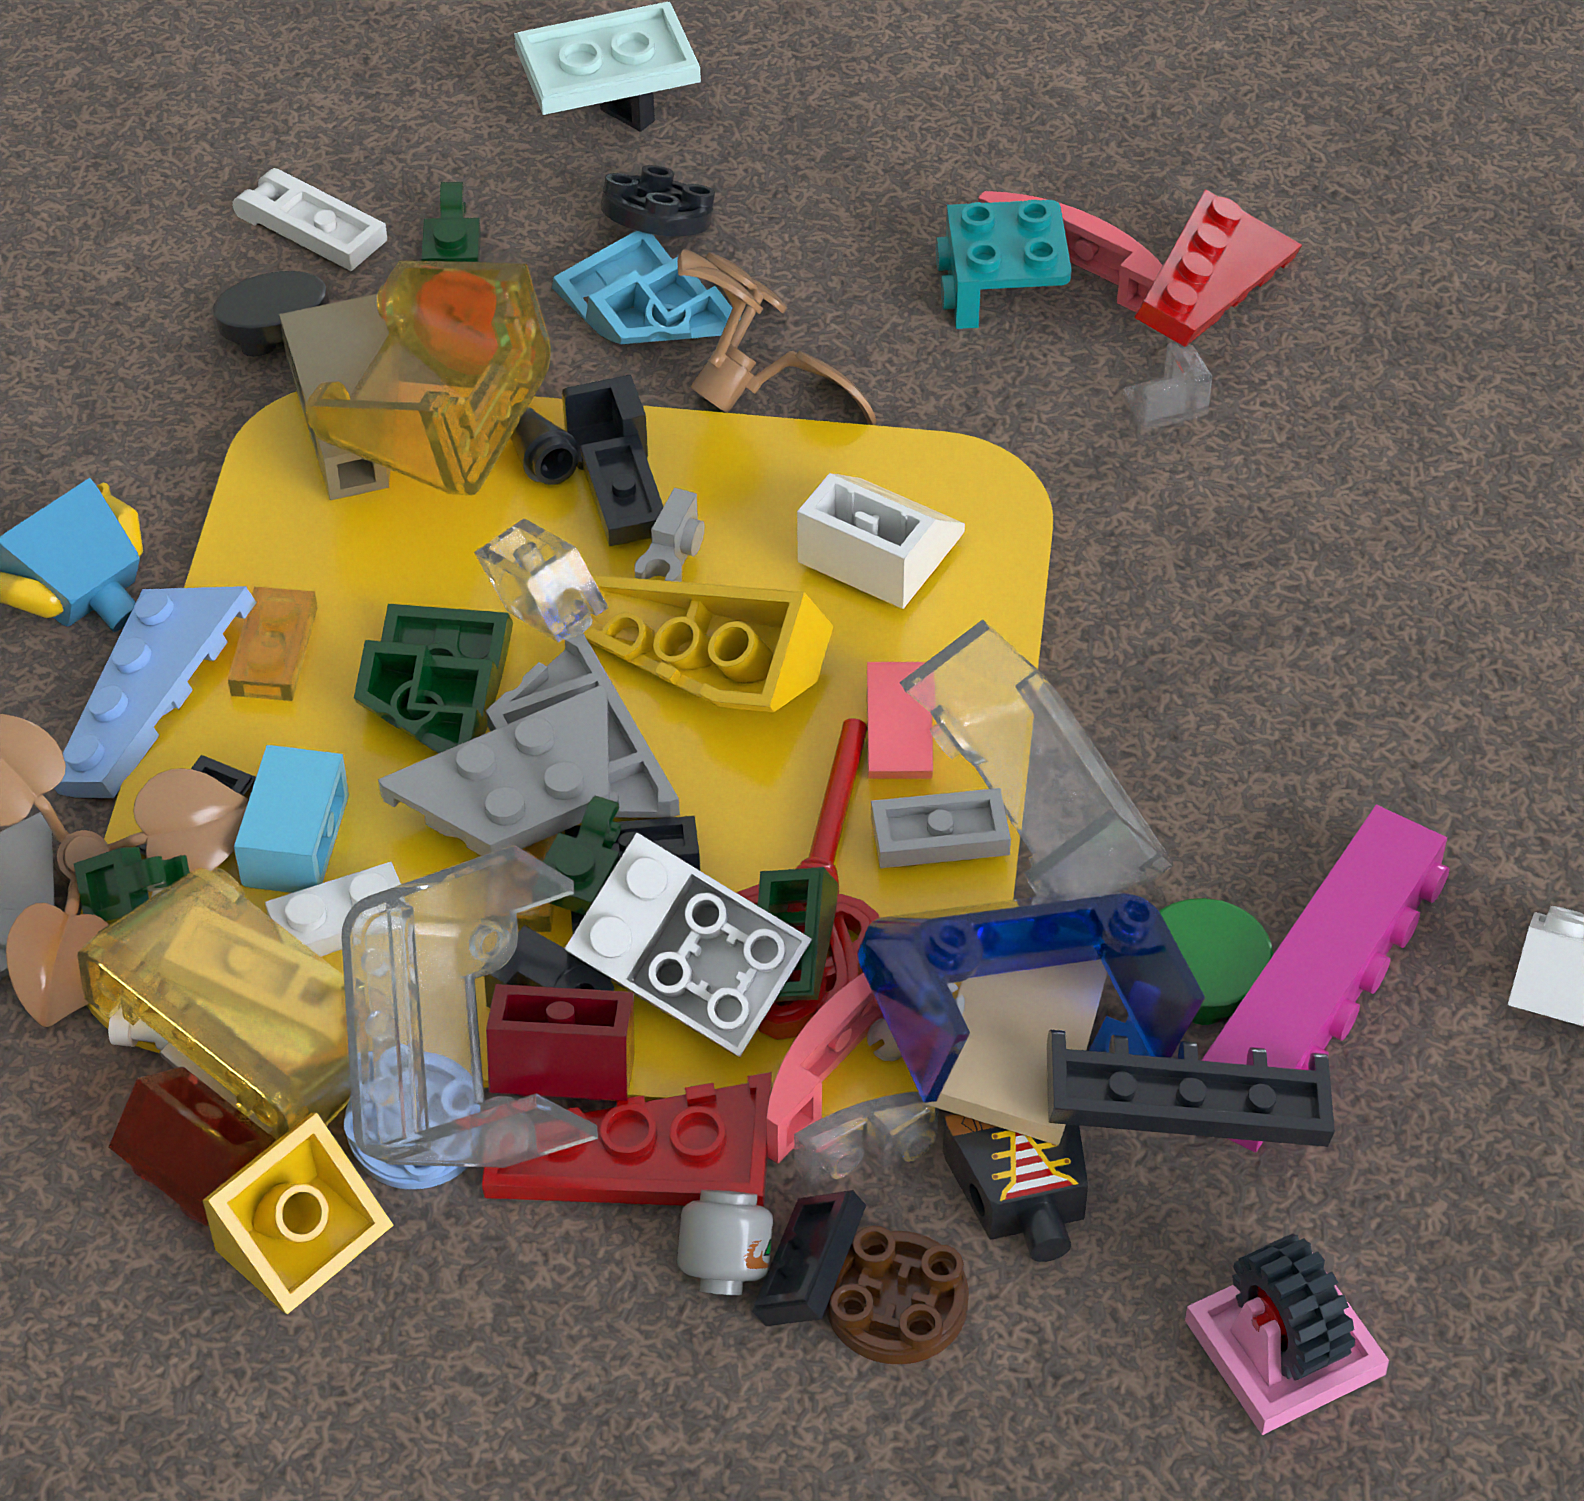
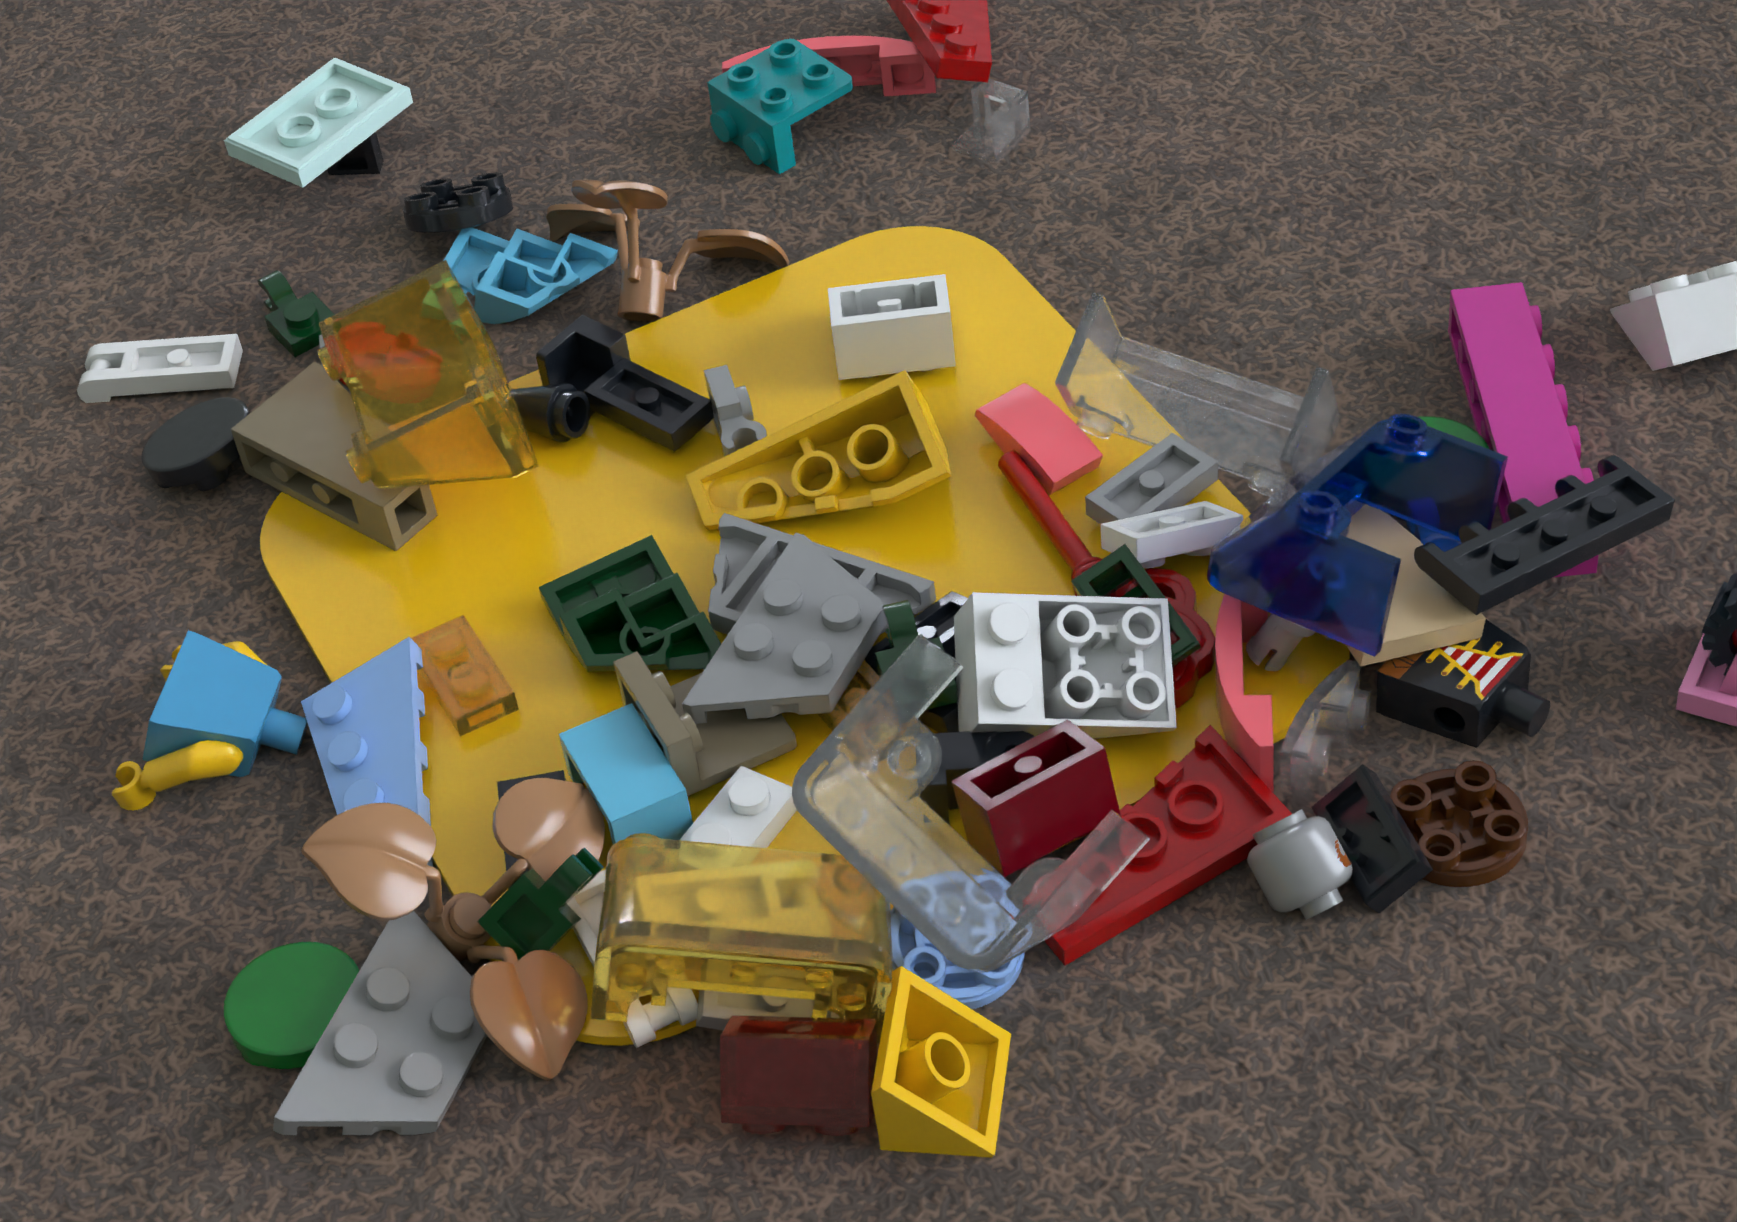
camera: 30 degrees left, 5 degrees down
(357, 820) = (702, 751): none -> dark tan bracket
(550, 584) = (666, 488): clear brick -> none
(903, 878) = (1170, 532): none -> white plate

